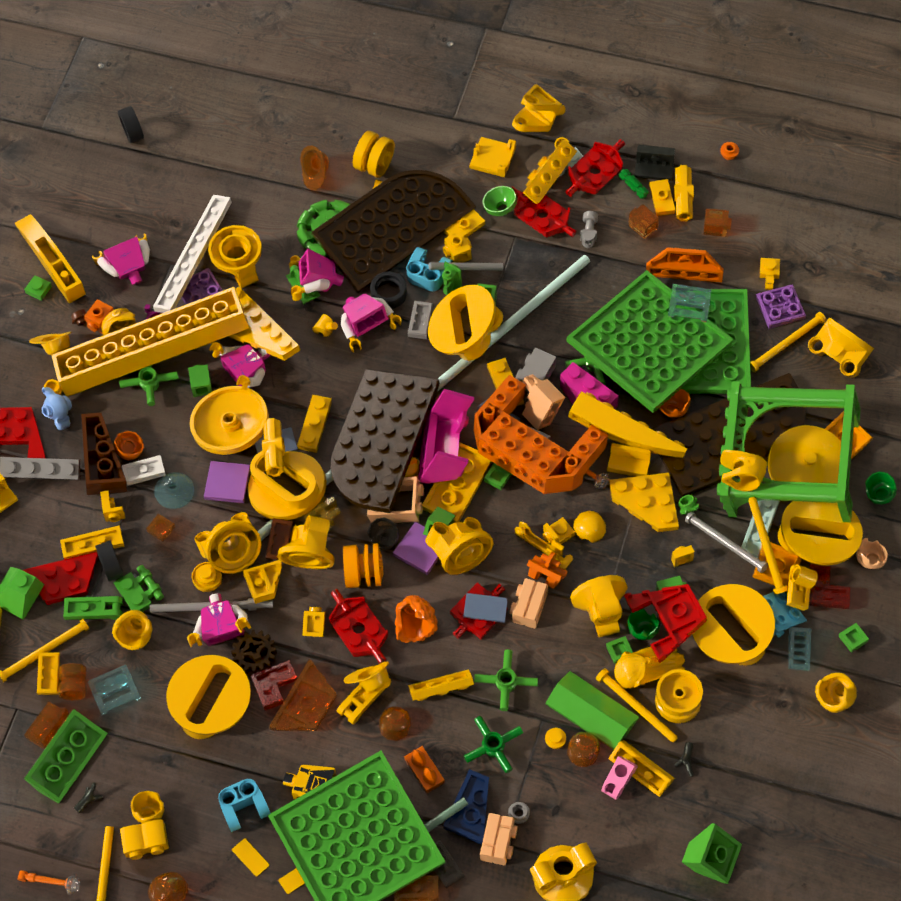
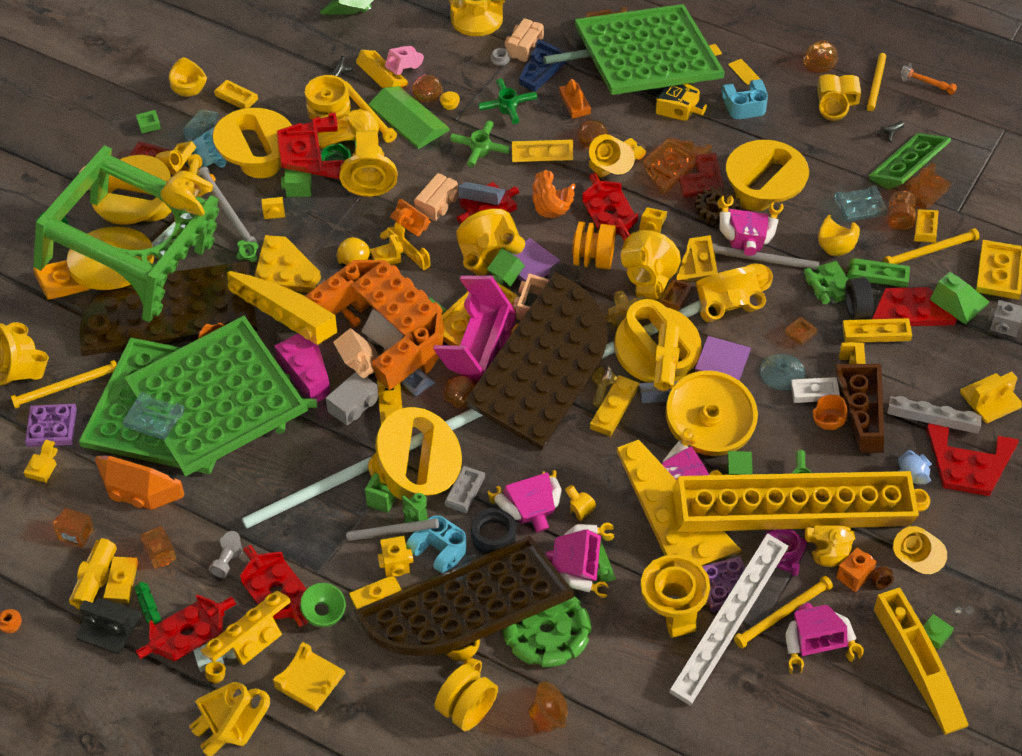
camera: 170 degrees left, 10 degrees down
(152, 278) = (742, 639): none -> yellow bar
(321, 441) = (602, 381): none -> clear yellow bar
(780, 693) = (236, 94): none -> yellow plate

